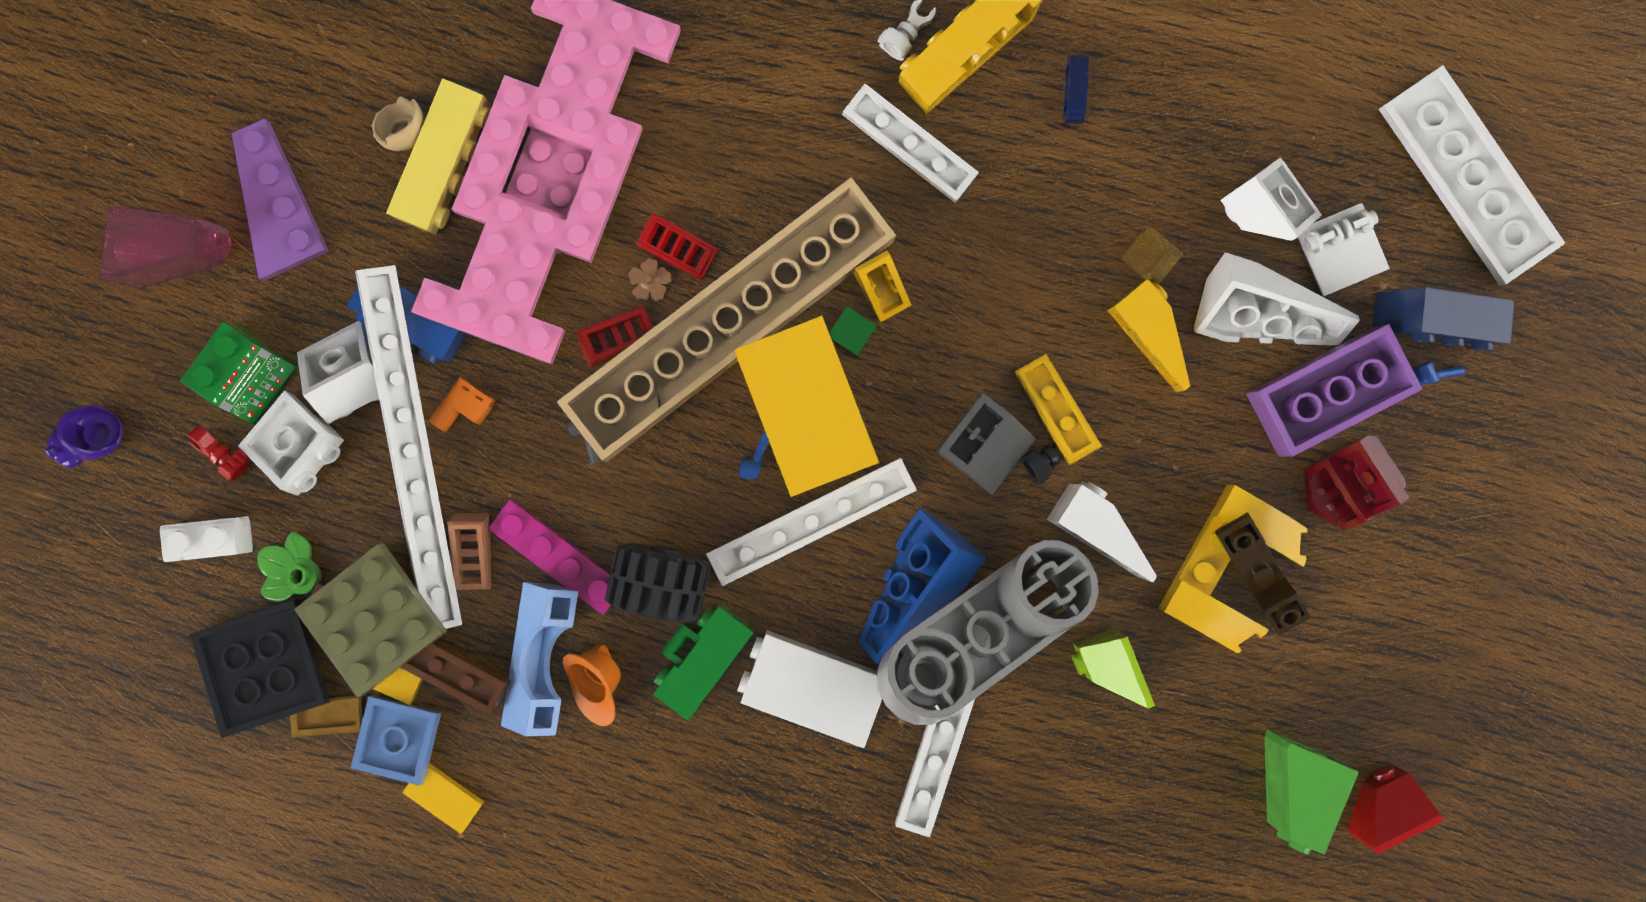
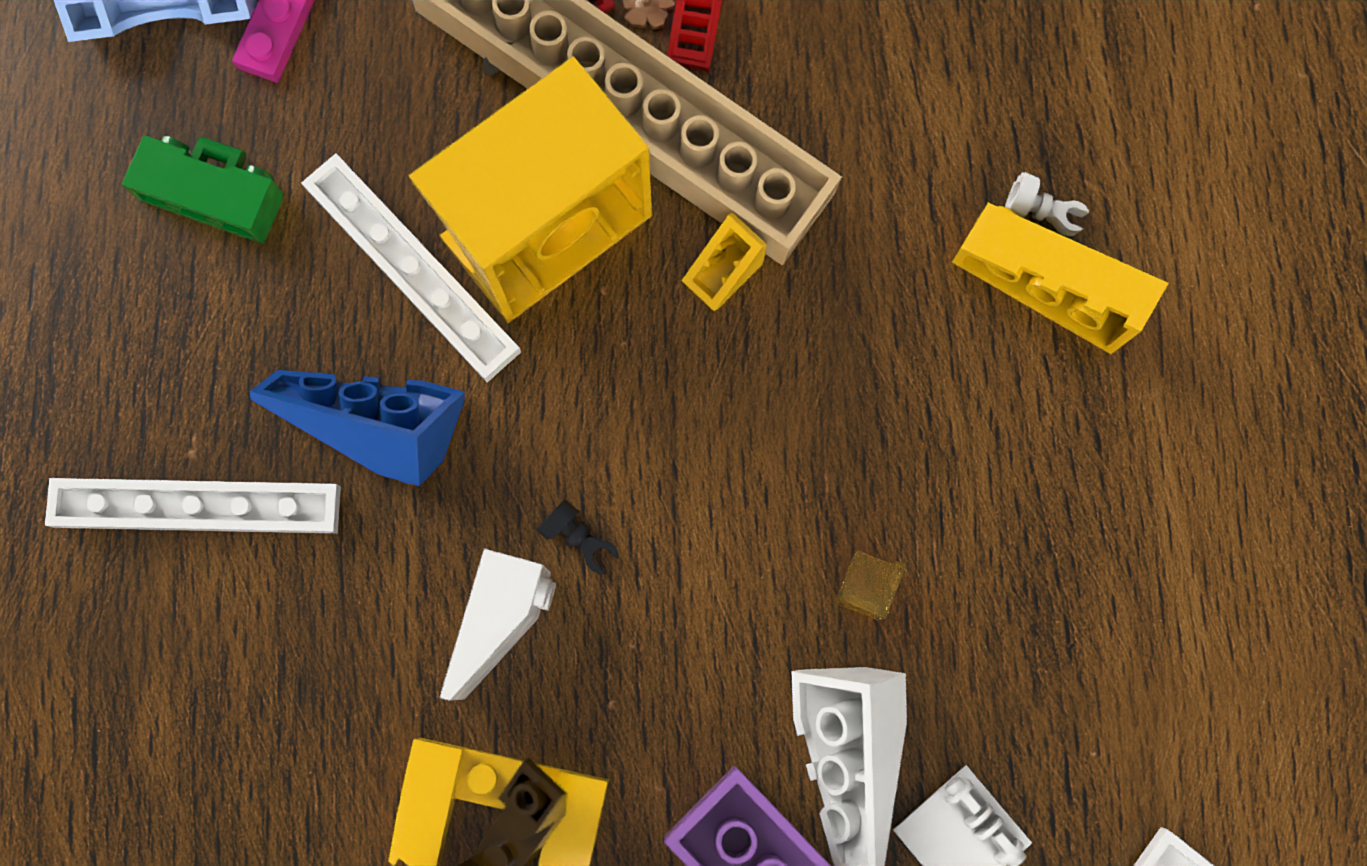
camera: 70 degrees right, 10 degrees down
(593, 681) = (153, 72): orange piece -> none
(657, 582) = (279, 96): black wheel -> none
(812, 688) = (202, 328): white brick -> none
(852, 331) = (659, 249): green tile -> none
(910, 143) = (909, 249): white plate -> none
(947, 665) = (247, 430): light grey beam -> none
(986, 443) = (566, 444): dark grey slope -> none
(1057, 409) = (637, 525): yellow tile -> none
(1075, 89) = (1045, 425): clear blue beam -> none
(1111, 663) = (321, 692): slope -> none
(1152, 327) = (784, 607): yellow slope -> none
(1272, 204) = (990, 719): white slope -> none

